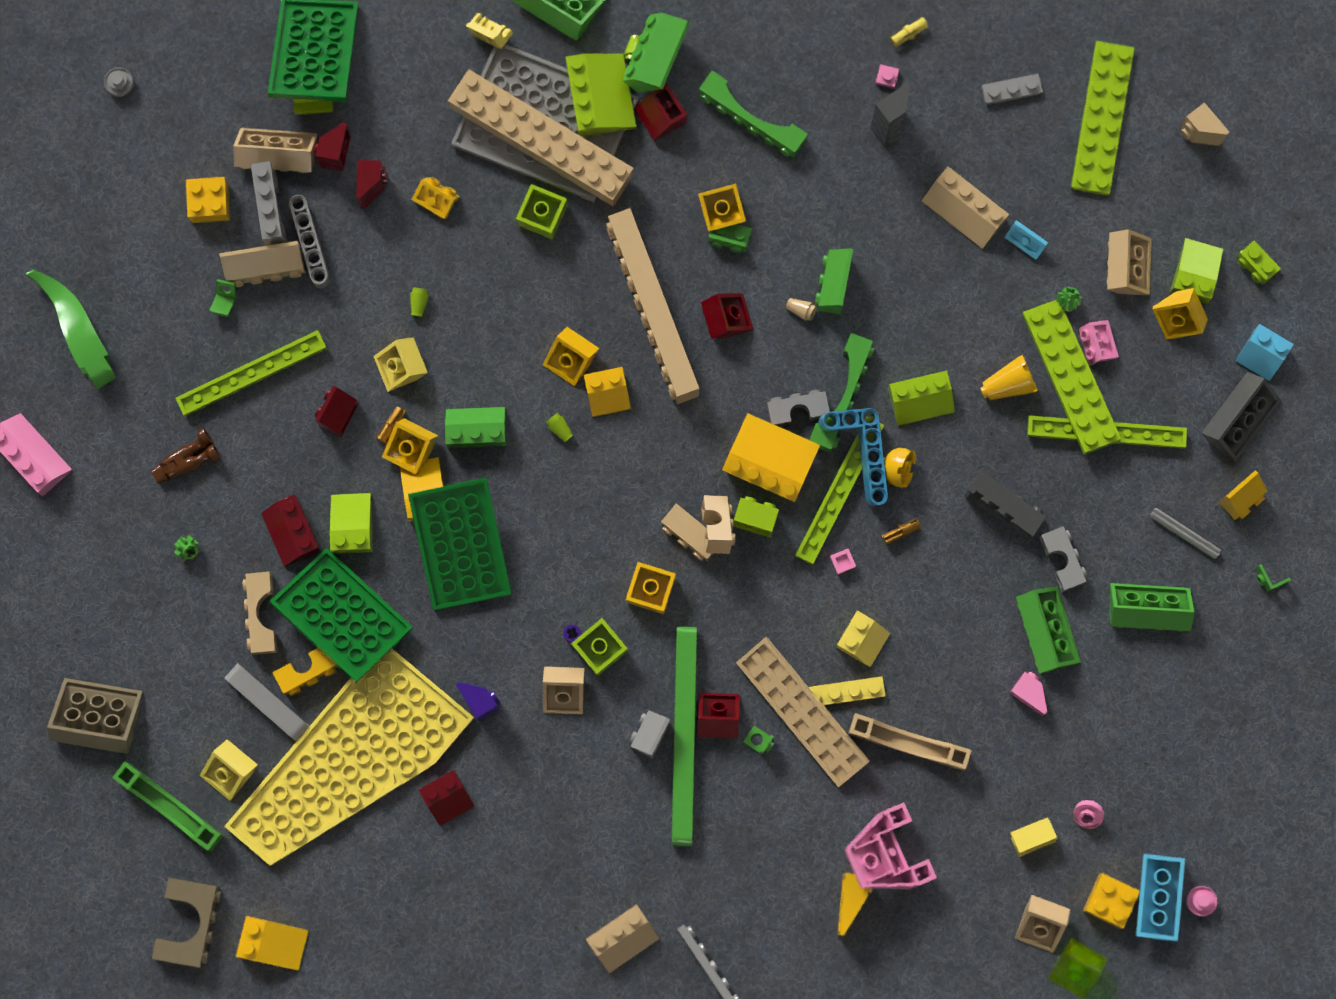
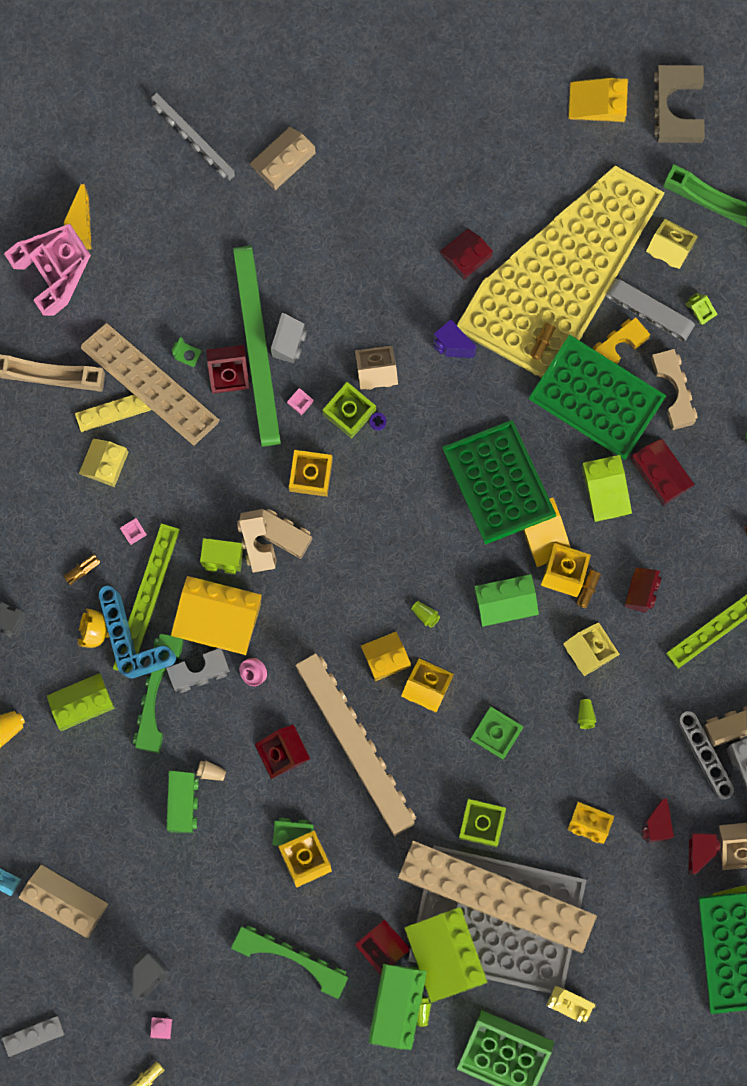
camera: 170 degrees right, 0 degrees up
(213, 695) = (701, 308): none -> lime bracket
(385, 684) = (542, 341): none -> pearl gold axle
(511, 298) = (496, 733): none -> bright green plate
(649, 667) = (300, 401): none -> bright pink plate
(743, 397) = (253, 671): none -> bright pink plate

